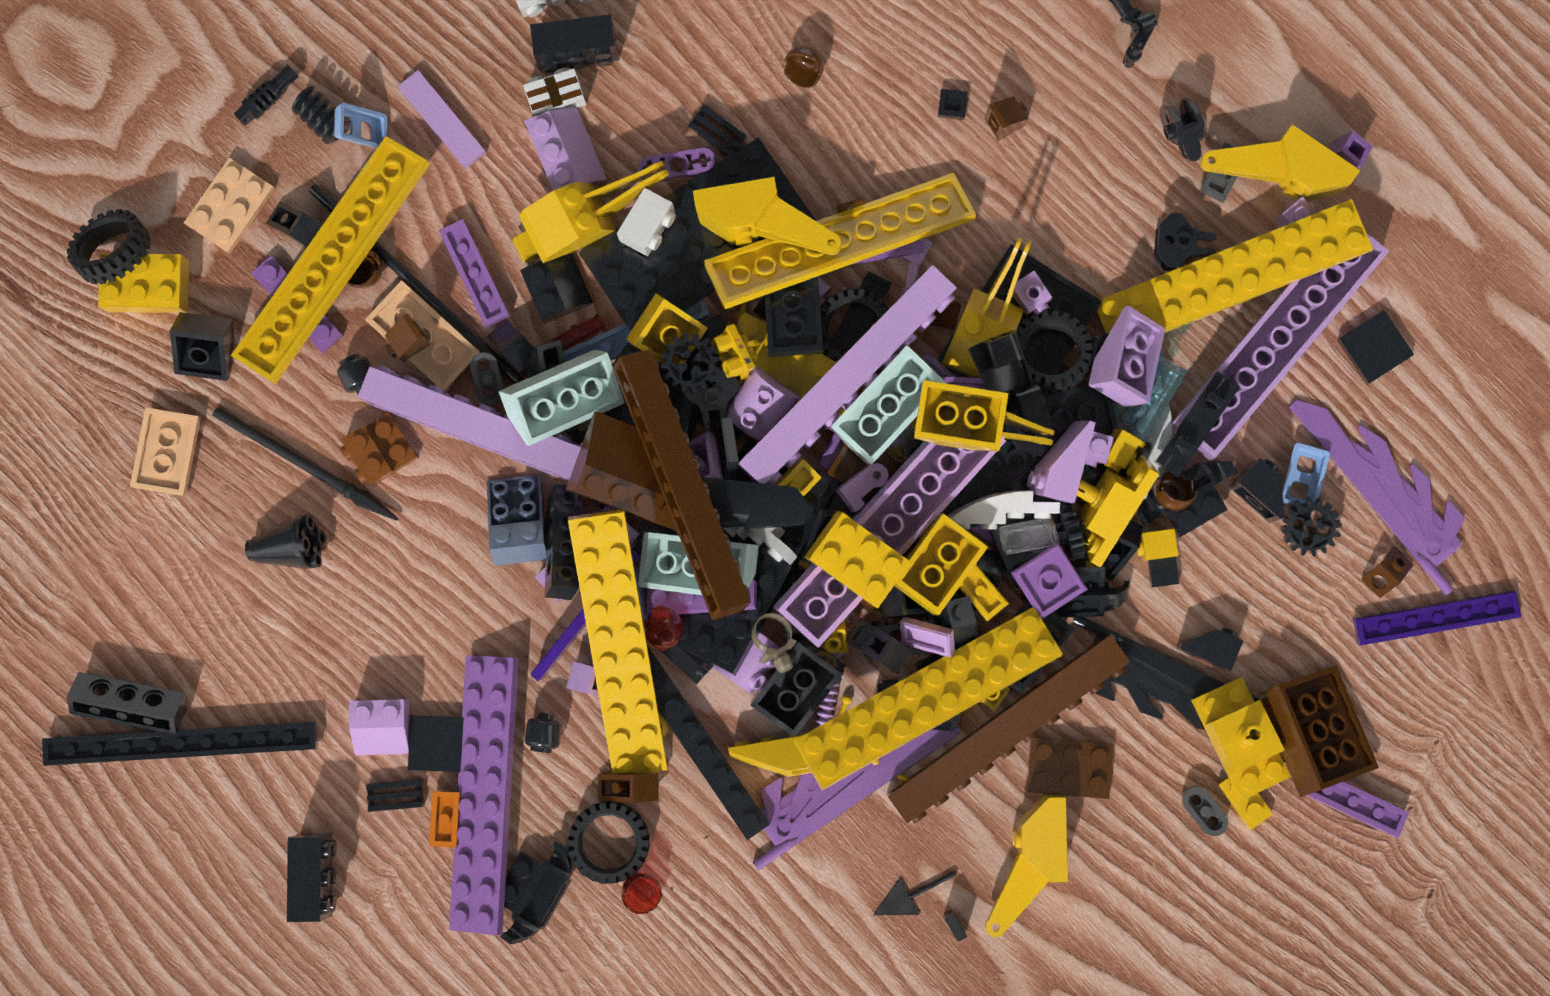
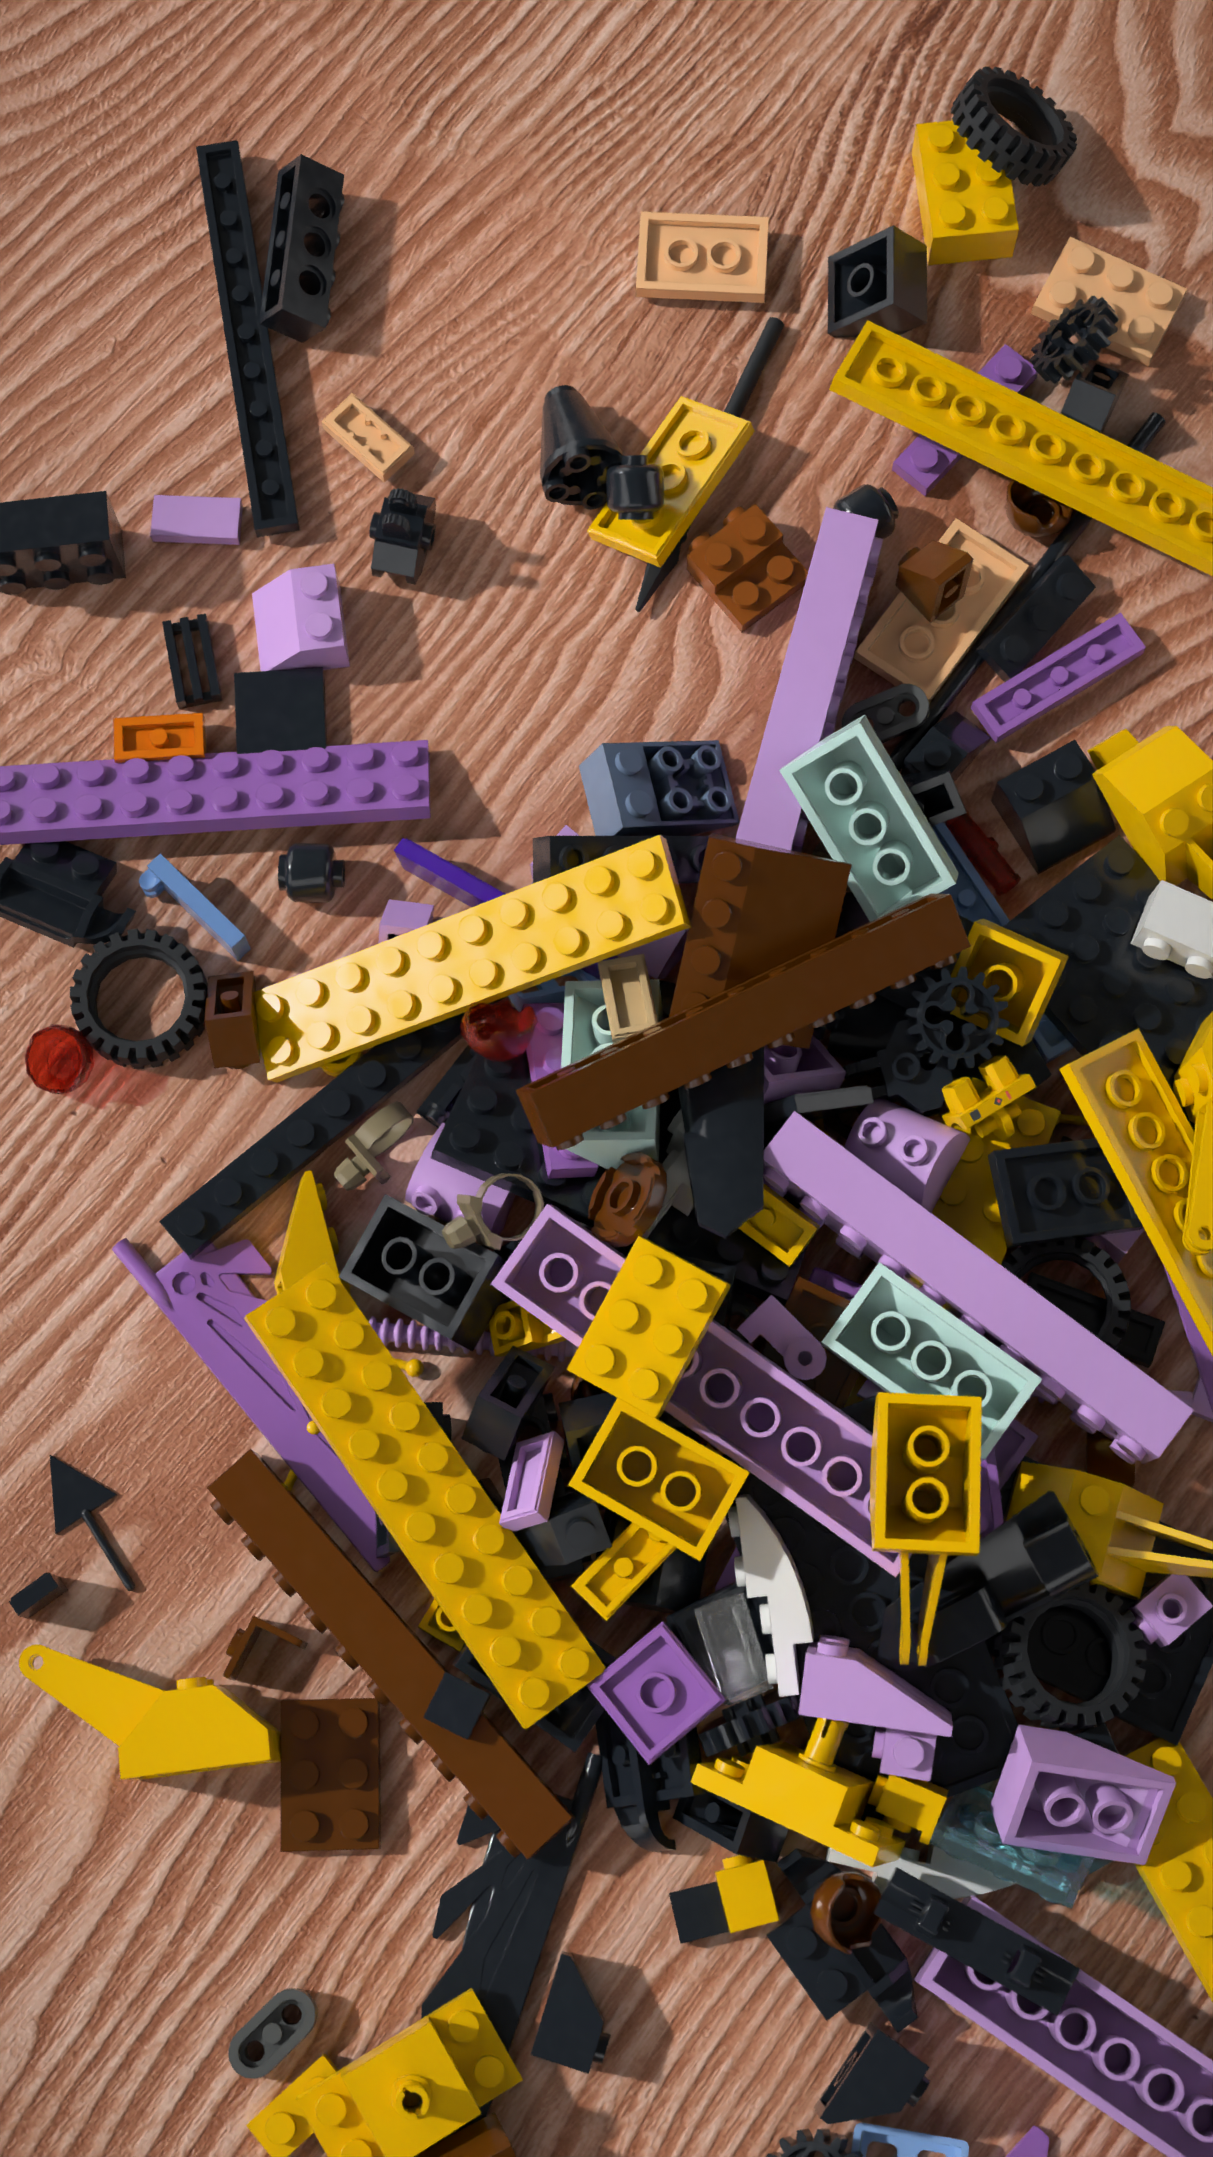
camera: 80 degrees right, 10 degrees down
(250, 220) = (1091, 325): none -> black gear
(260, 673) = (368, 437): none -> light nougat plate
(301, 785) = (196, 519): none -> lavender tile
(316, 489) = (695, 453): none -> yellow tile
(325, 511) = (635, 488): none -> black head
(331, 657) = (403, 534): none -> black hinge
(434, 280) = (1036, 618): none -> black plate
(533, 823) = (164, 876): none -> medium blue hinge
(657, 550) = (627, 995): none -> tan tile
(716, 716) = (370, 1141): none -> dark tan piece
(778, 563) = (628, 1199): none -> reddish brown tile
(992, 810) = (244, 1641): none -> reddish brown bracket
(1045, 691) = (457, 1706): none -> black tile

